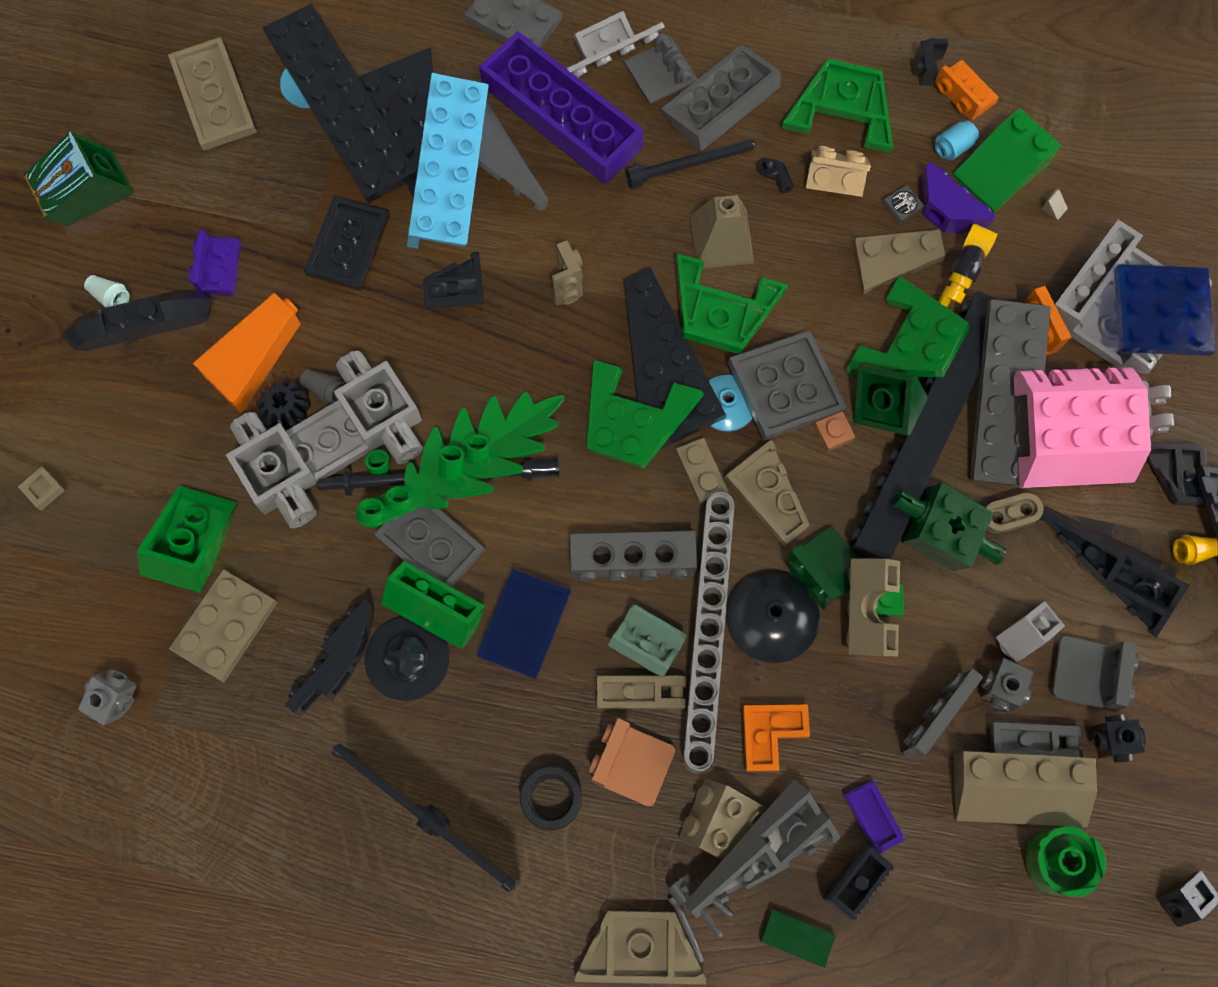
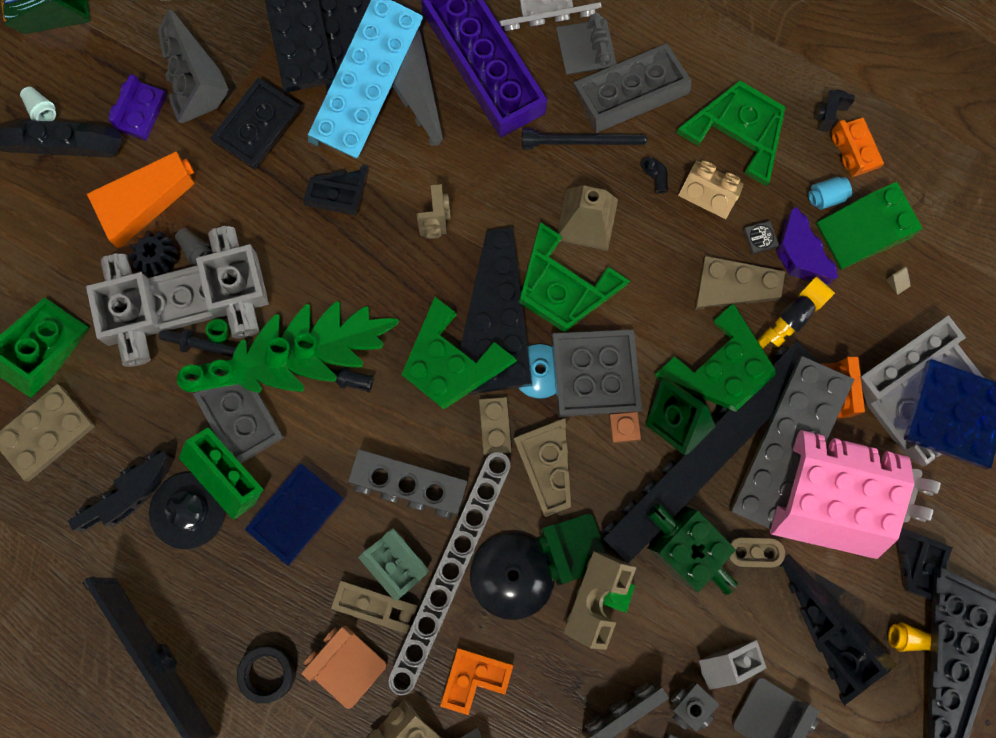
camera: 15 degrees right, 5 degrees up
(262, 213) = (194, 76): none -> dark grey wedge

